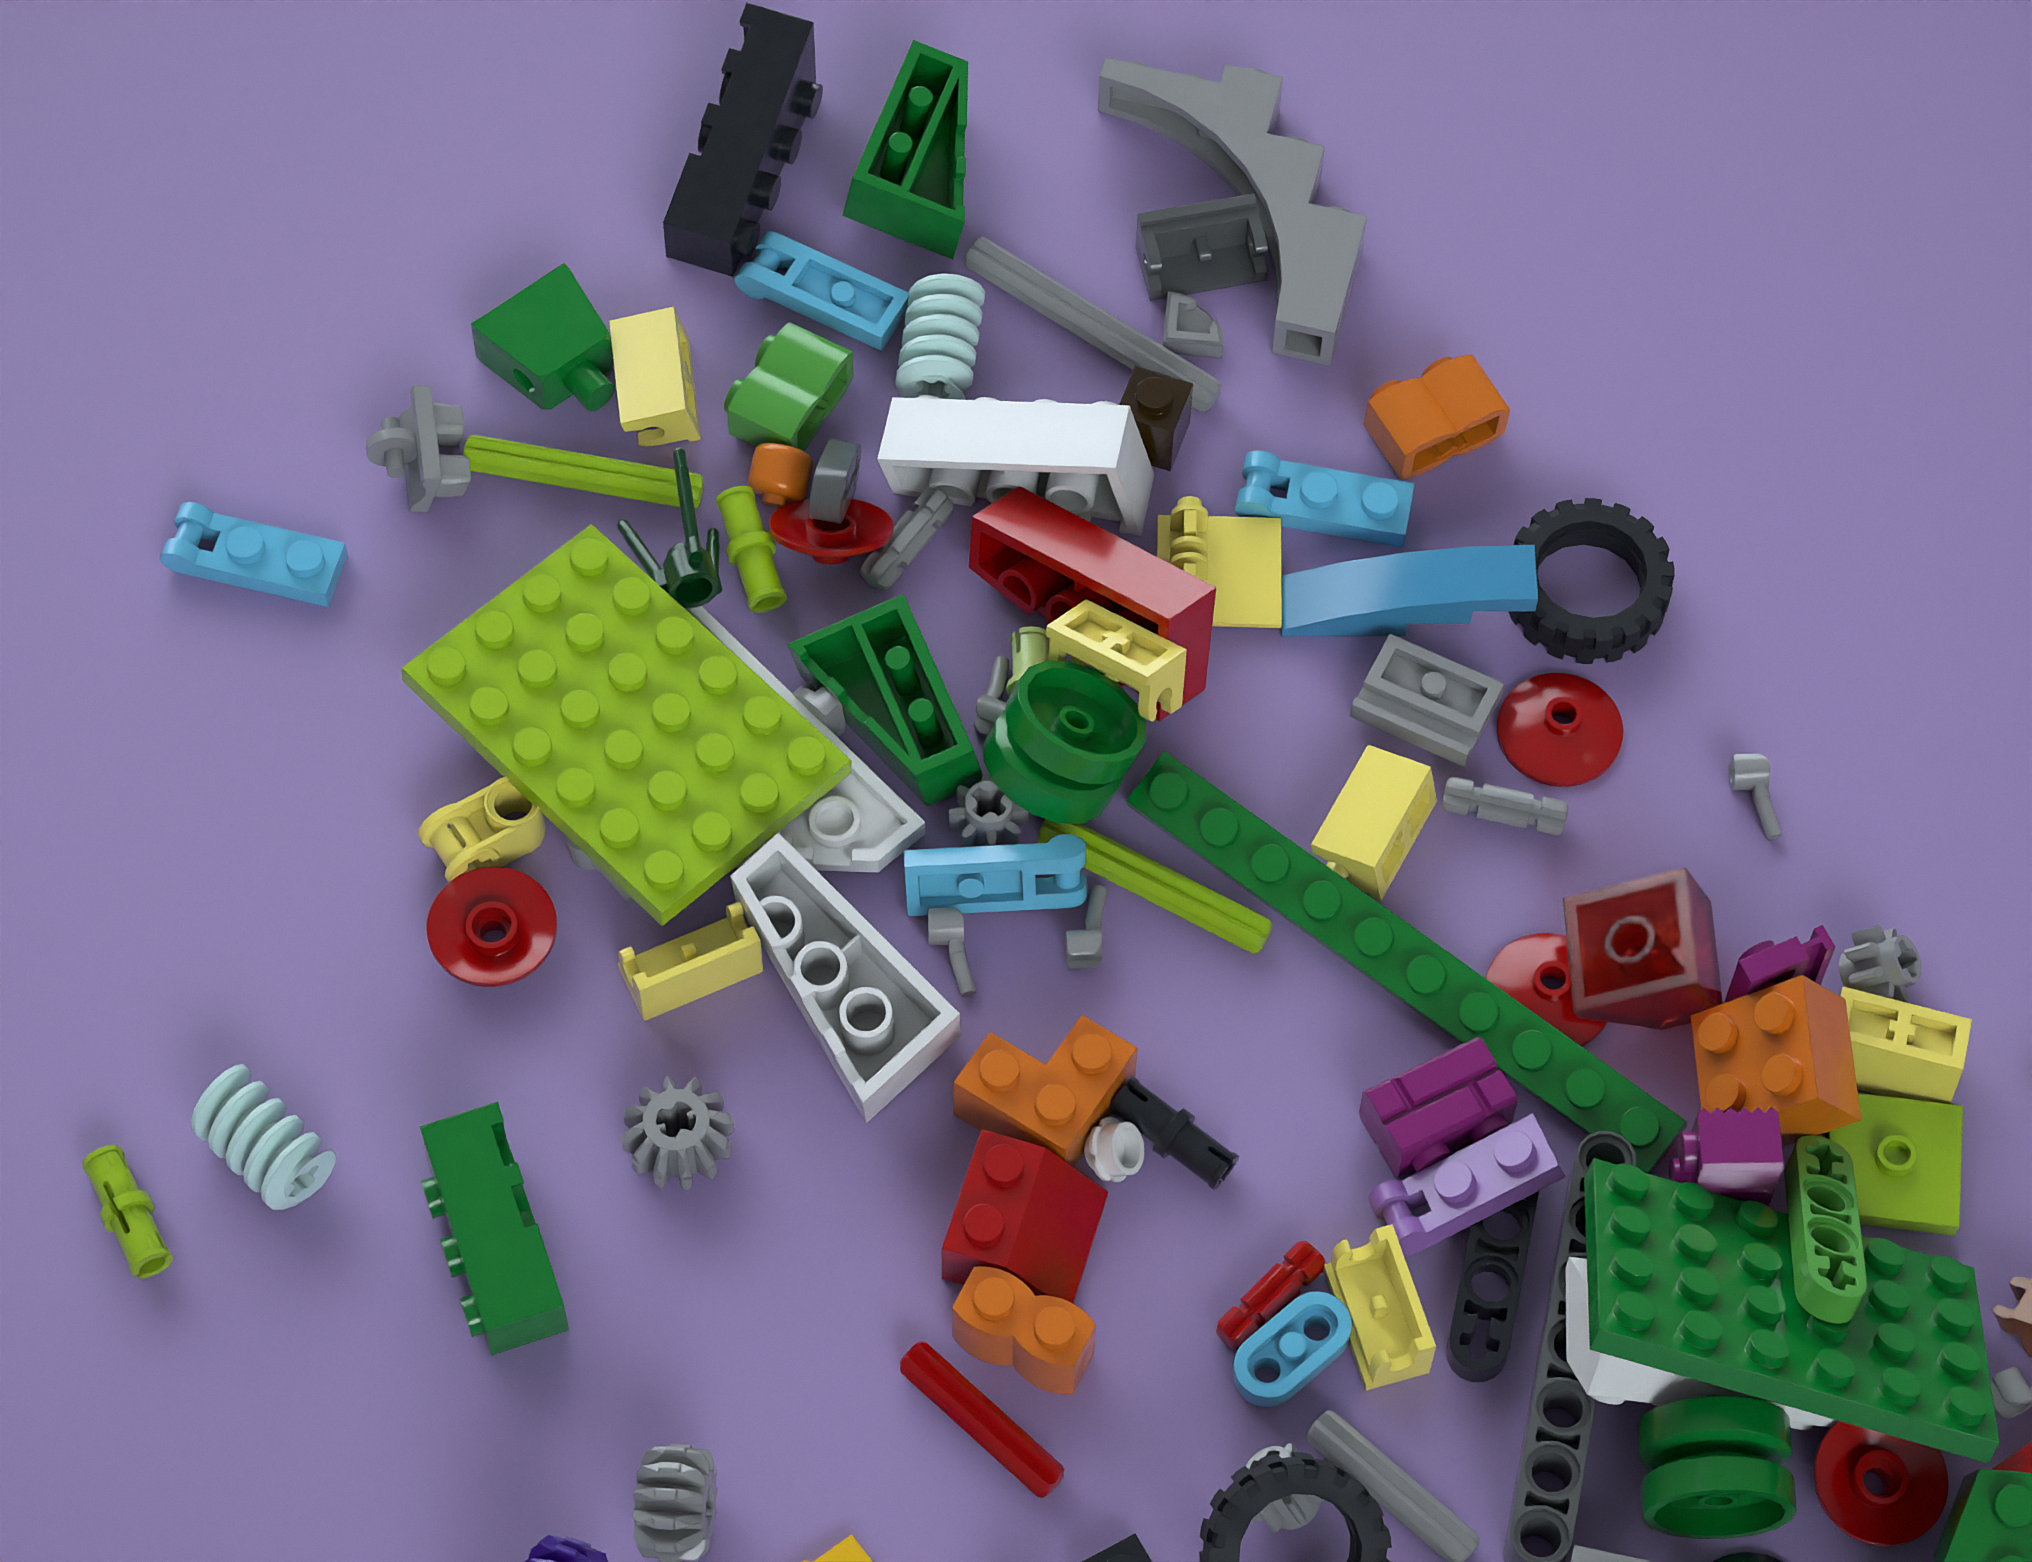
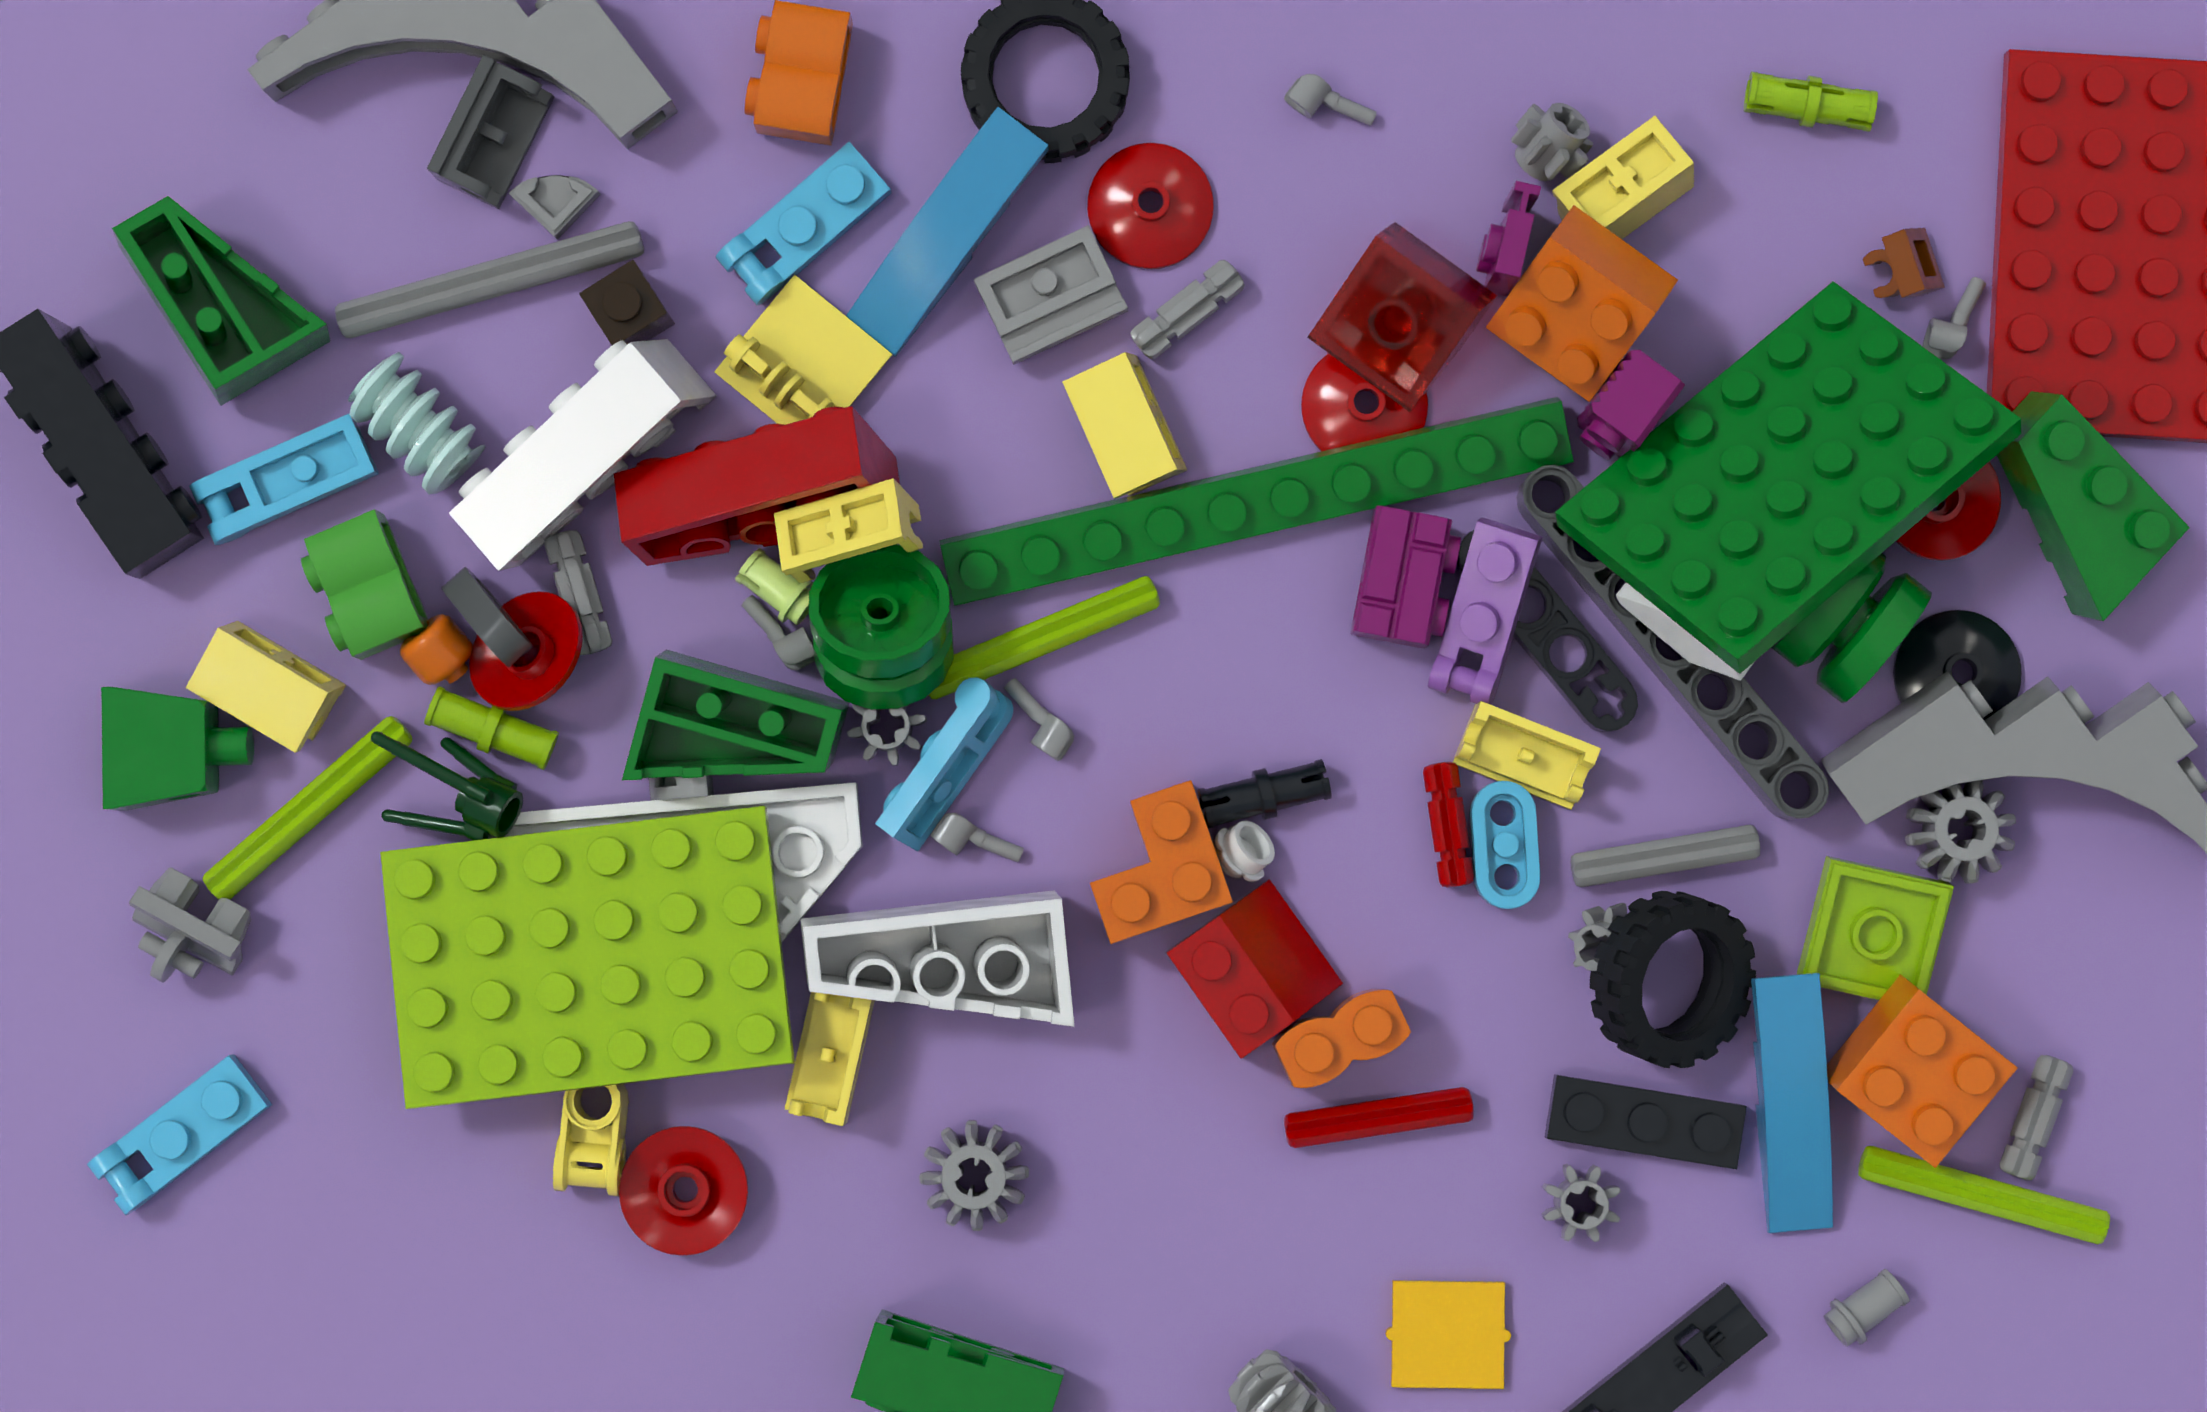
camera: 50 degrees left, 25 degrees up
(1824, 1176) = (1752, 381): bright green beam -> none
(1906, 1163) = (1719, 264): lime plate -> none

